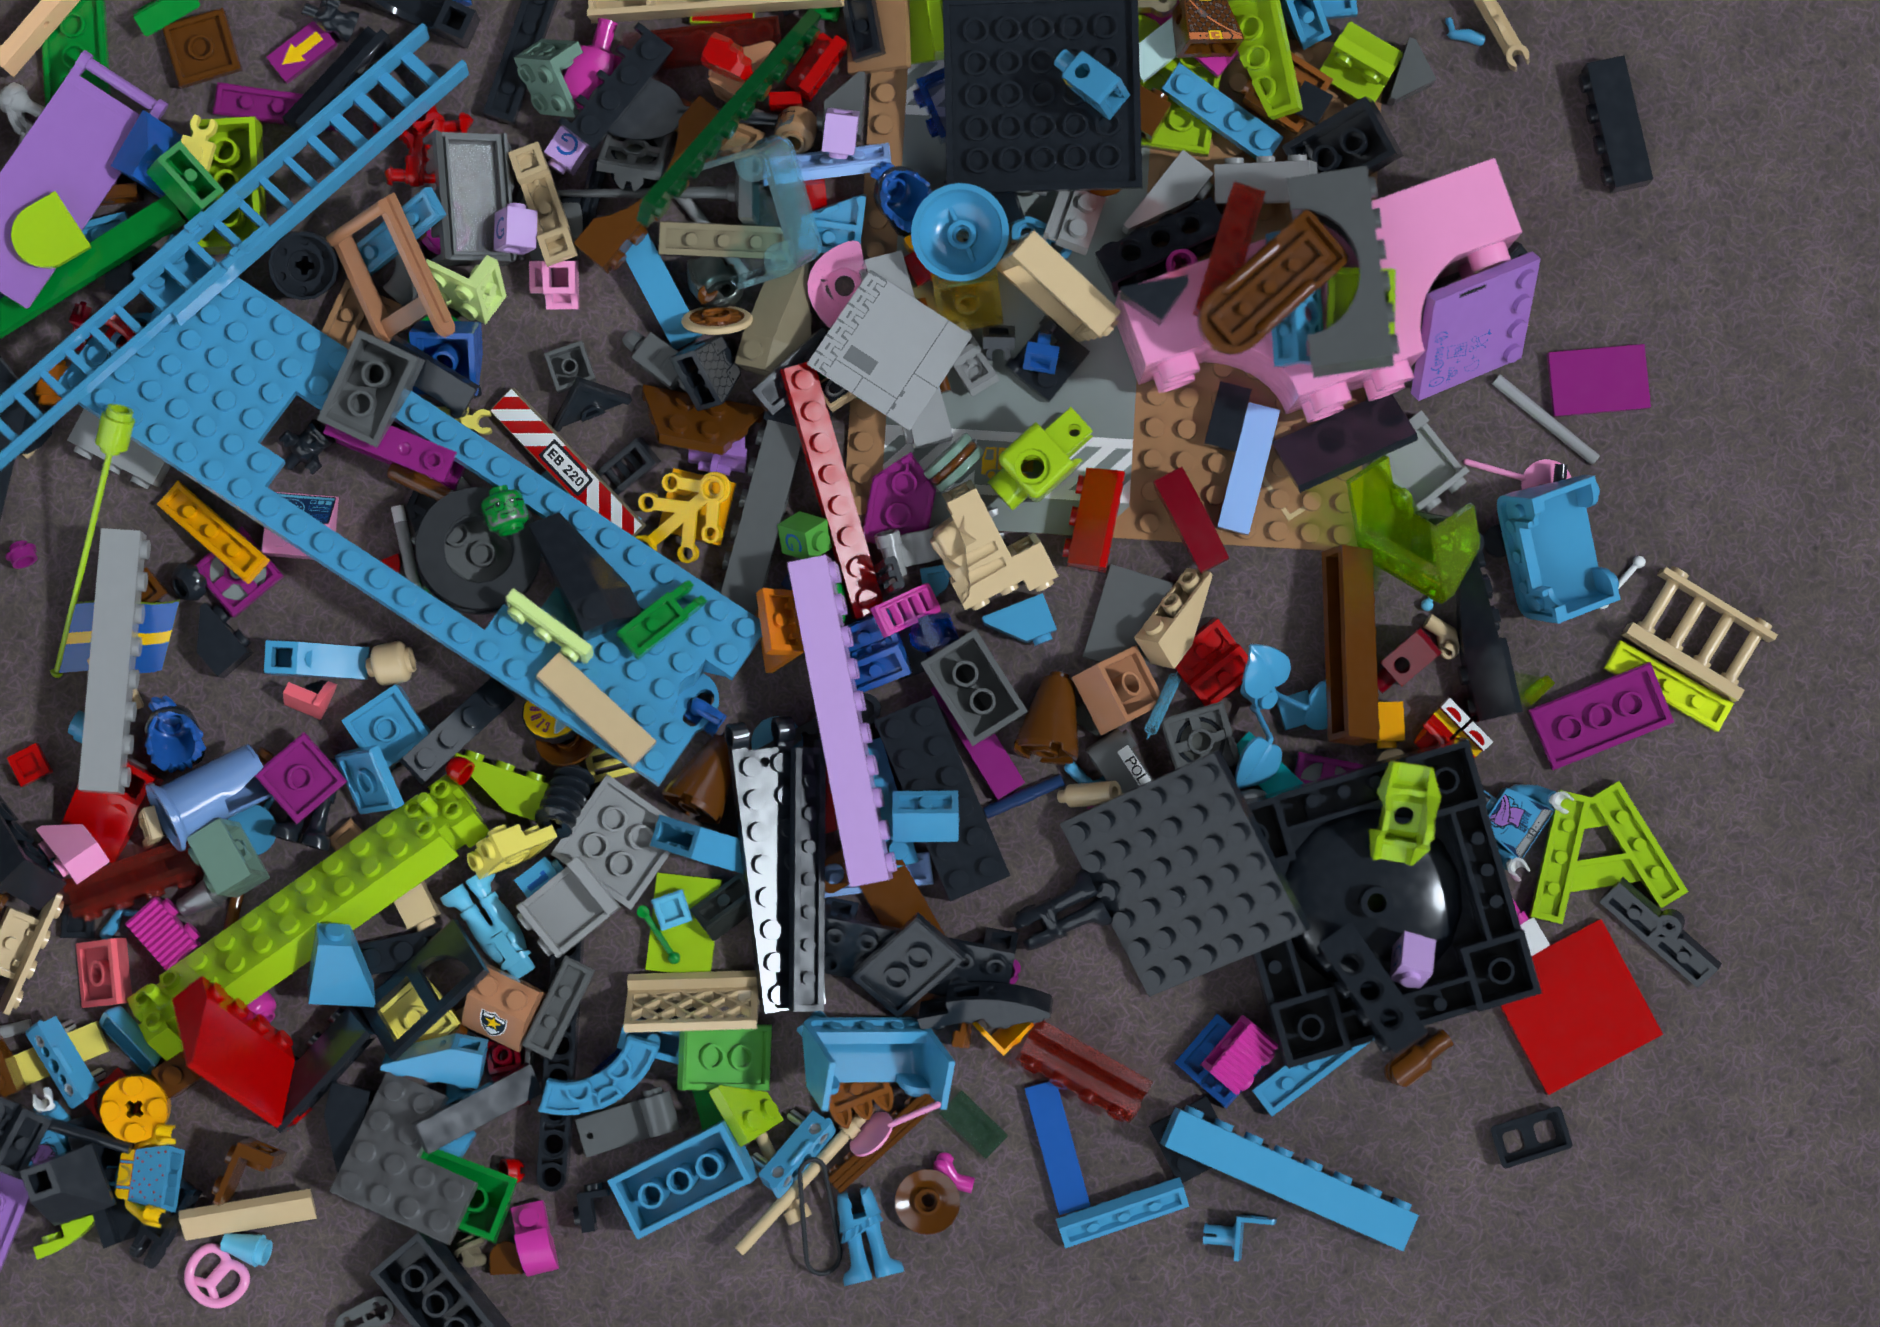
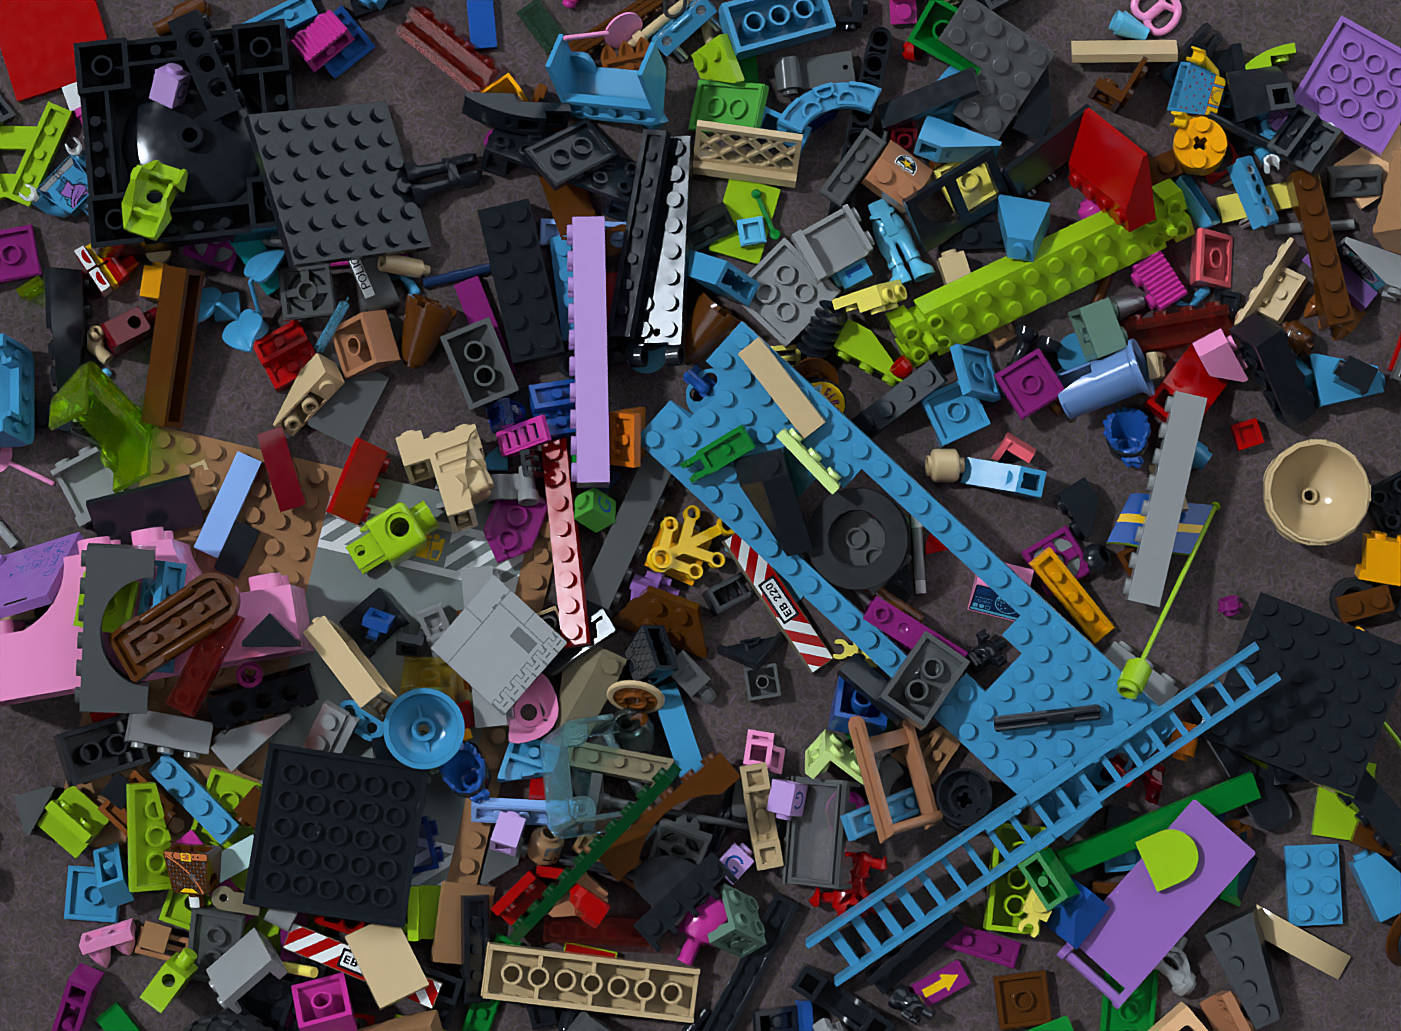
camera: 170 degrees left, 0 degrees up
(214, 368) = (1047, 718): none -> black axle
(505, 510) = (830, 564): green head -> none
(925, 816) = (535, 266): dark azure panel -> none
(953, 462) = (464, 548): sand green head -> none
(1024, 621) = (429, 413): dark azure slope -> none
(1092, 82) = (285, 825): dark azure torso -> none

